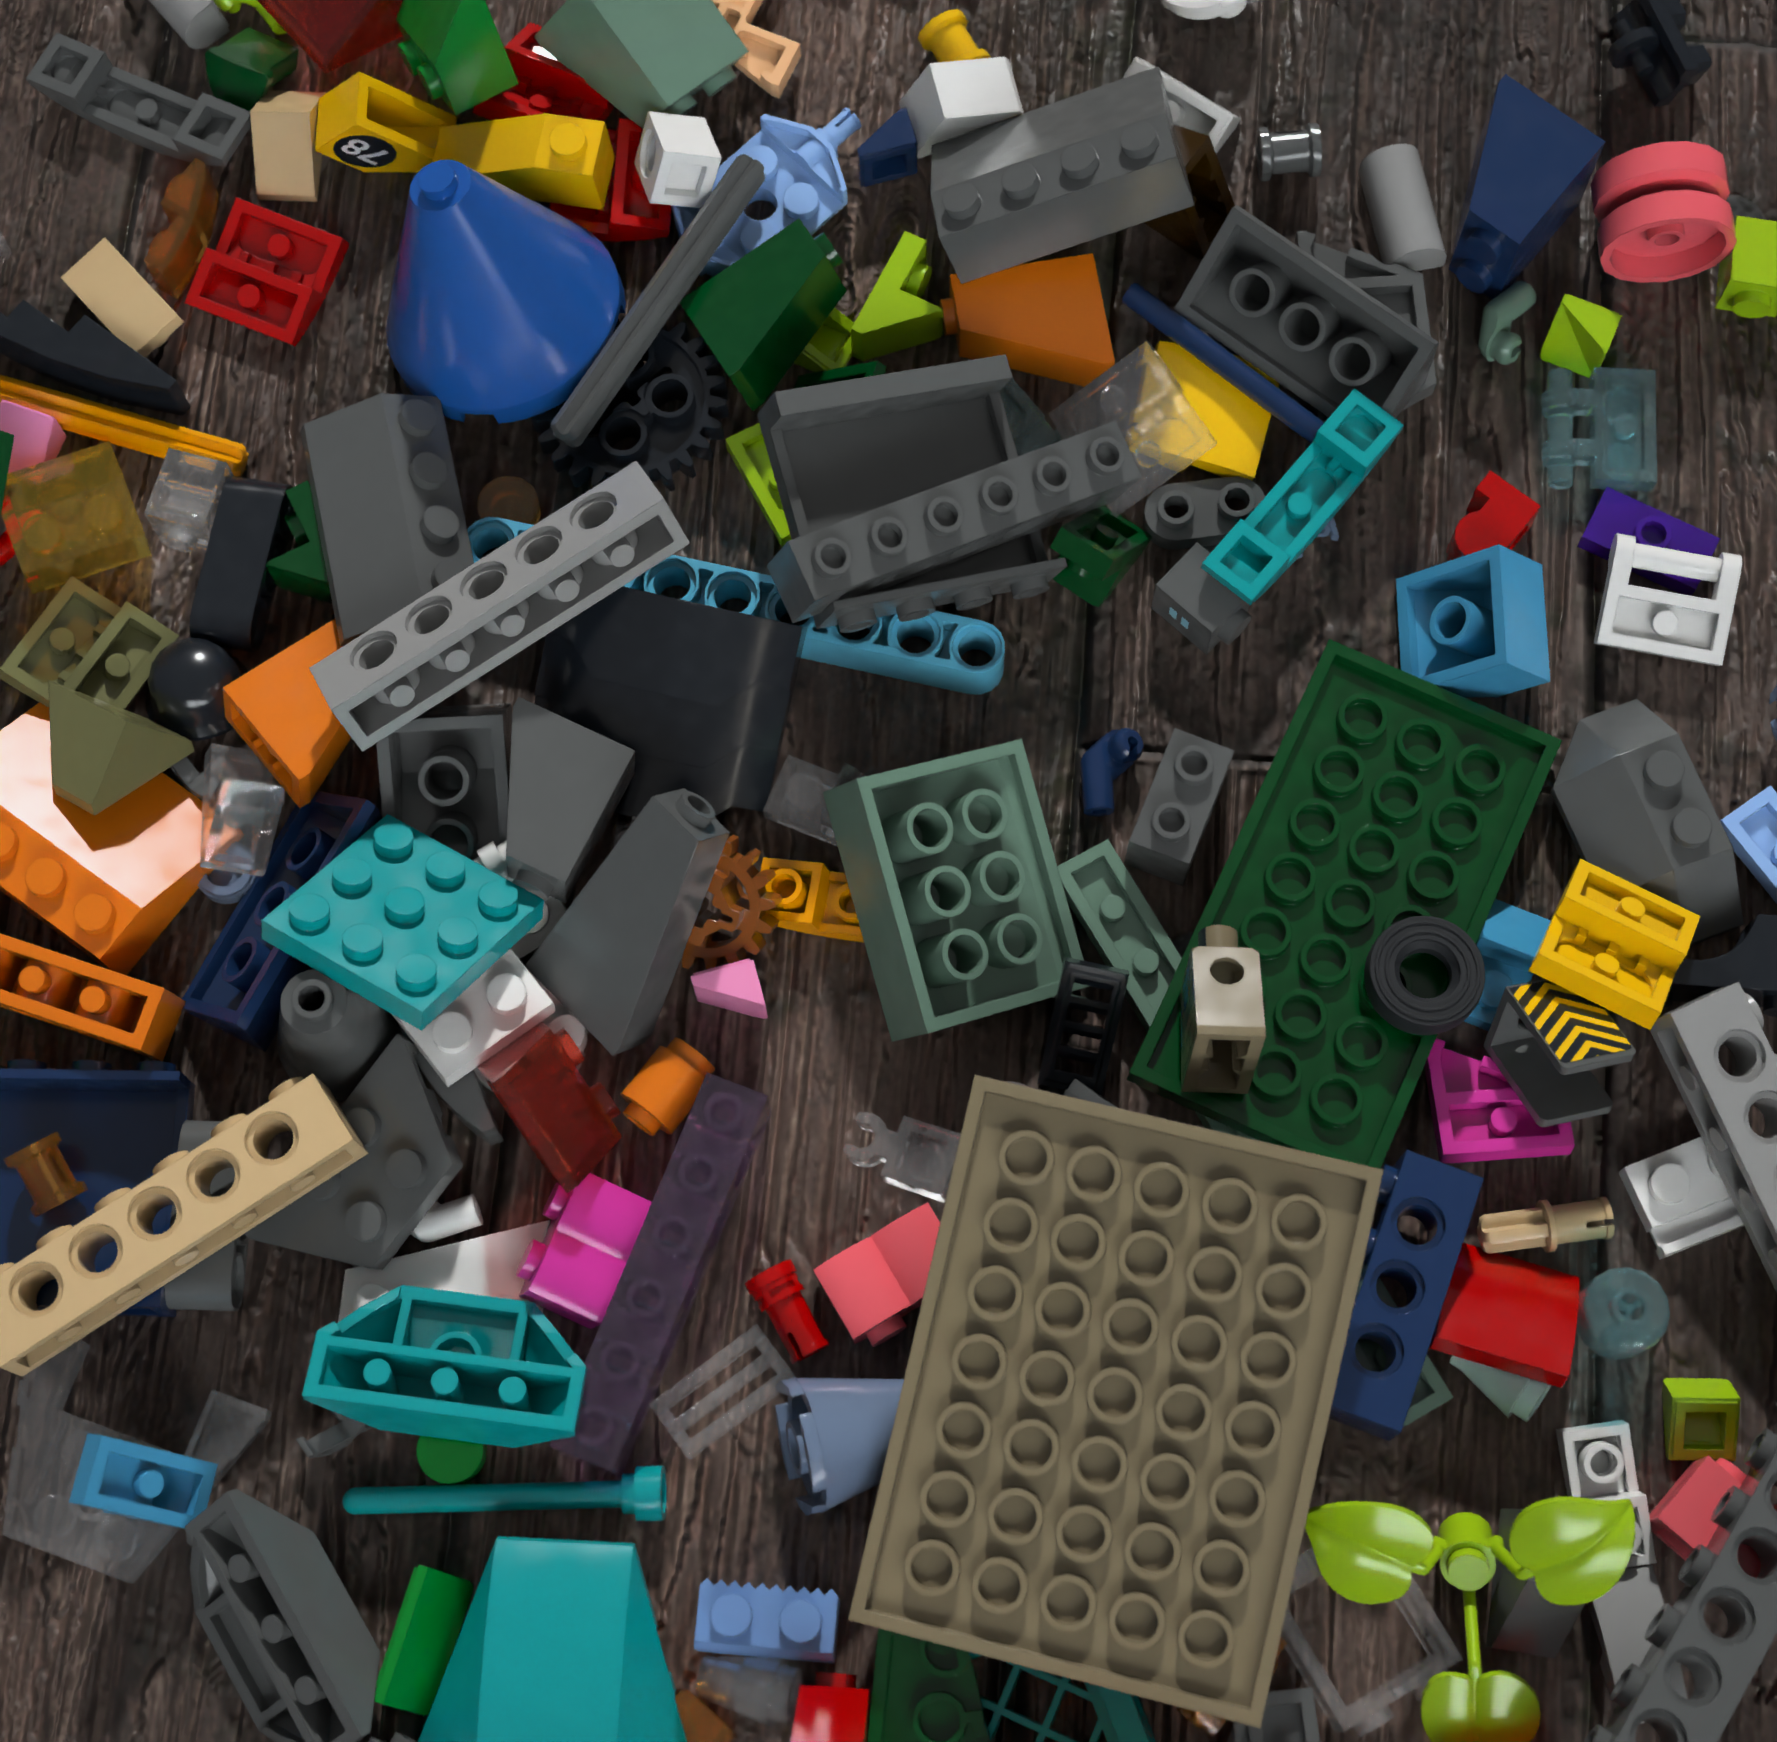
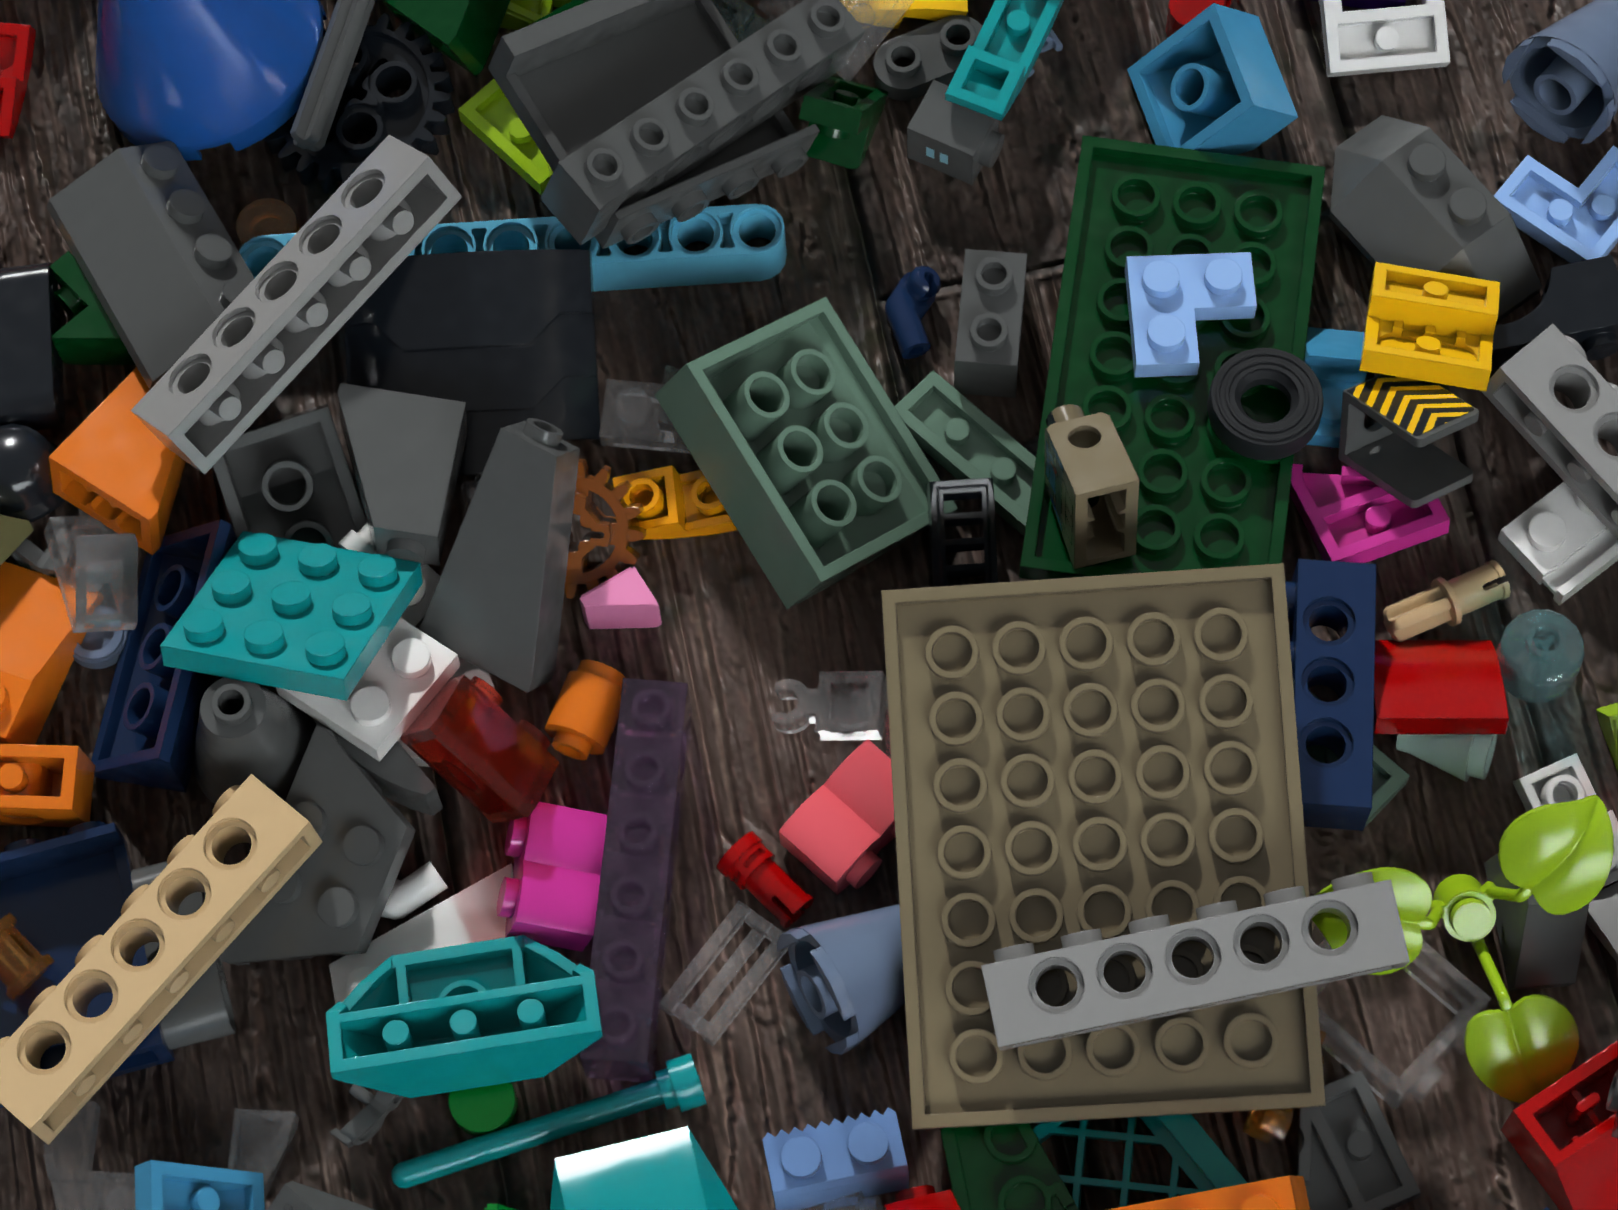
camera: 15 degrees left, 5 degrees down
(1348, 1593) = (1372, 946): none -> light grey brick
(1368, 831) = (1173, 293): none -> light blue plate

